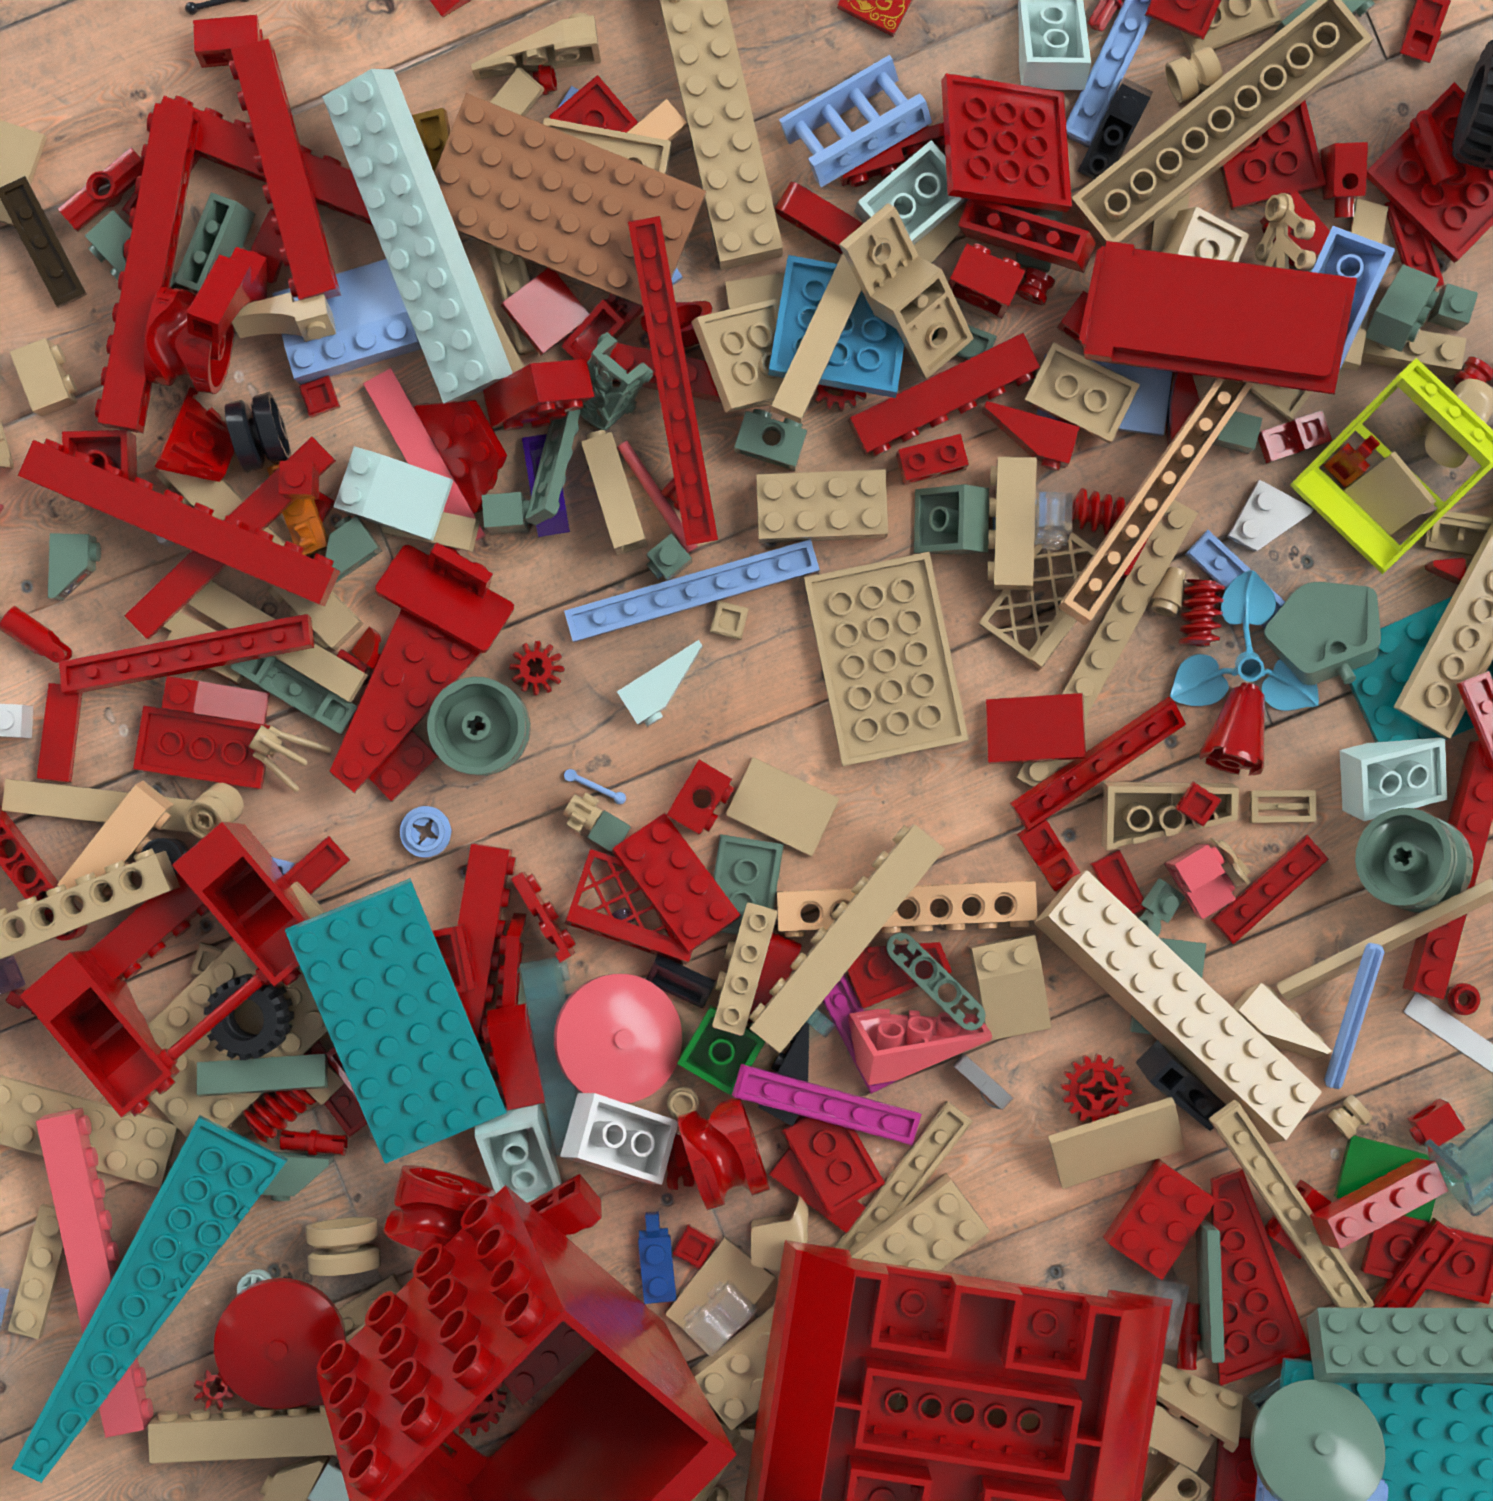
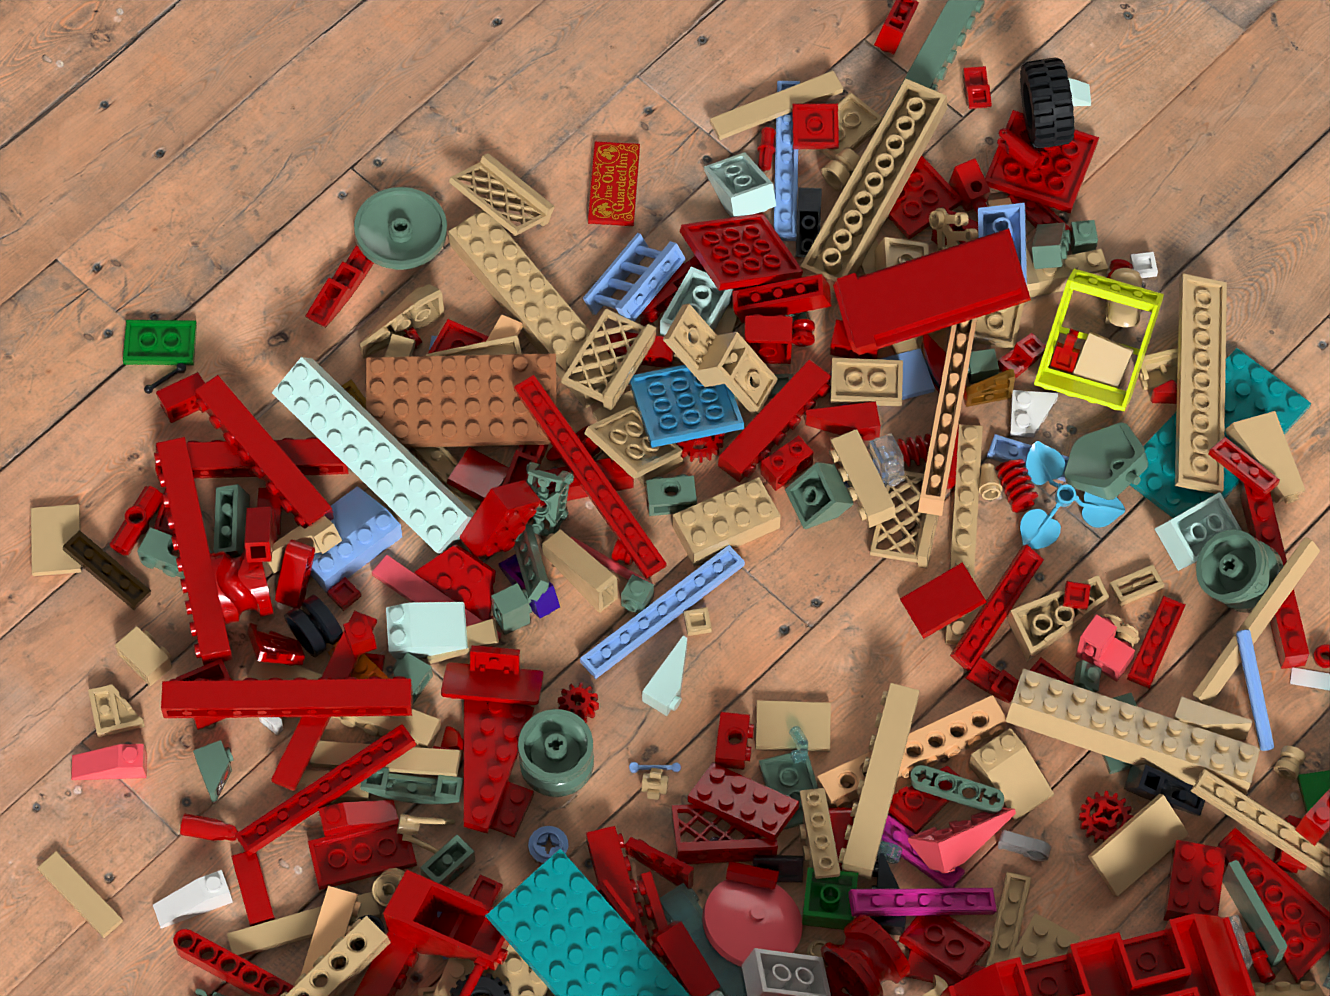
camera: 20 degrees left, 25 degrees down
(261, 353) = (295, 574): none -> red beam
(293, 810) = (449, 862): none -> sand green brick
(609, 831) = (678, 791): sand green tile -> none
(643, 983) = (752, 875): none -> red tile
(778, 840) = (801, 742): none -> clear light blue arm
(791, 245) = (624, 371): none -> tan fence
(818, 343) = (676, 410): tan tile -> none
(886, 659) = (818, 601): tan plate -> none
(1232, 471) = (991, 389): none -> pearl gold wing
(1238, 733) = (1082, 550): red cone -> none

